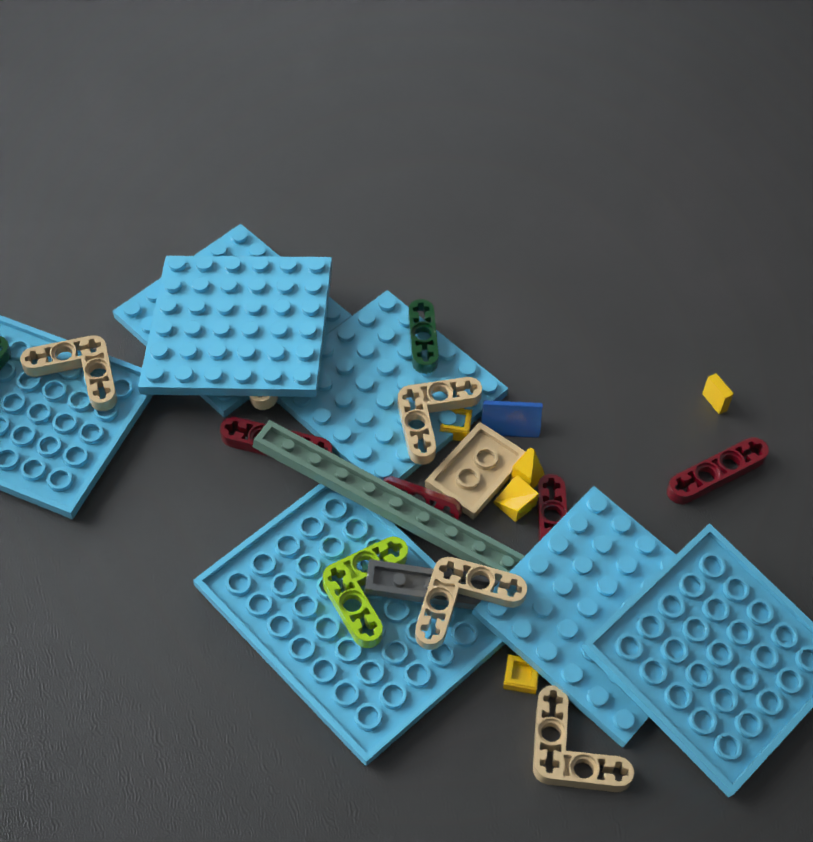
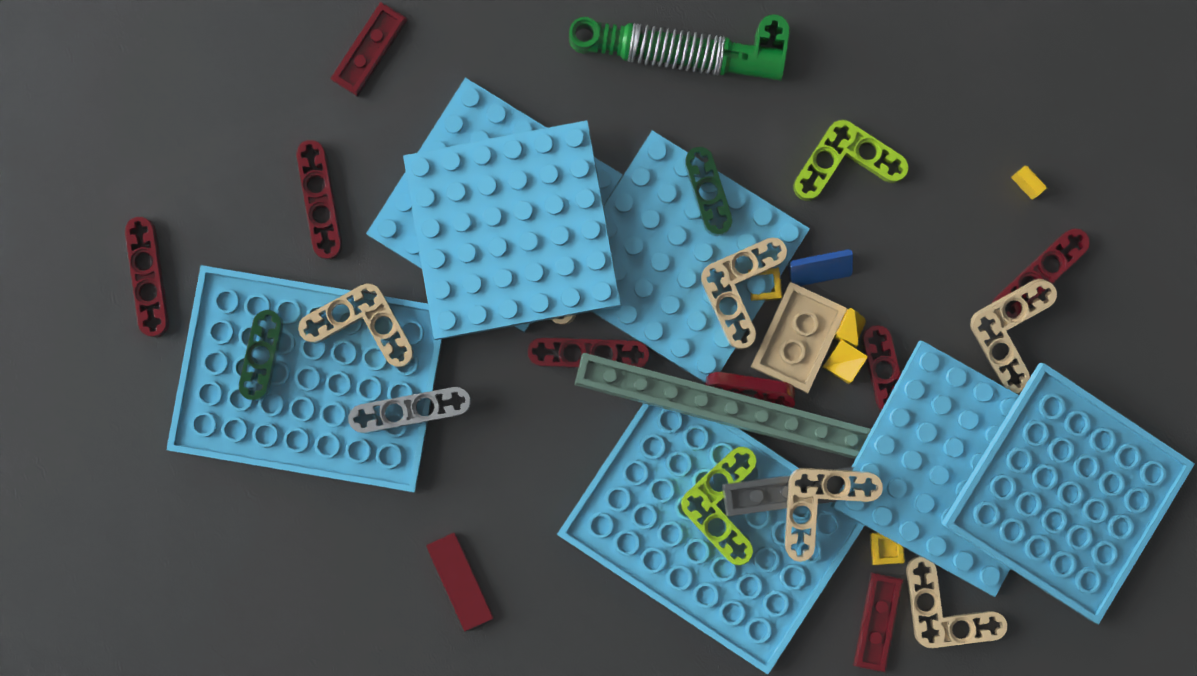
camera: 15 degrees left, 30 degrees up
(83, 606) = (459, 581): none -> dark red tile
(85, 281) = (322, 199): none -> dark red beam
(95, 437) = (409, 407): none -> light grey beam
(168, 193) = (368, 49): none -> dark red tile
(460, 249) = (703, 53): none -> green piece
(496, 744) = (878, 622): none -> dark red tile
(558, 340) = (850, 149): none -> lime beam
(675, 494) = (1002, 323): none -> tan beam

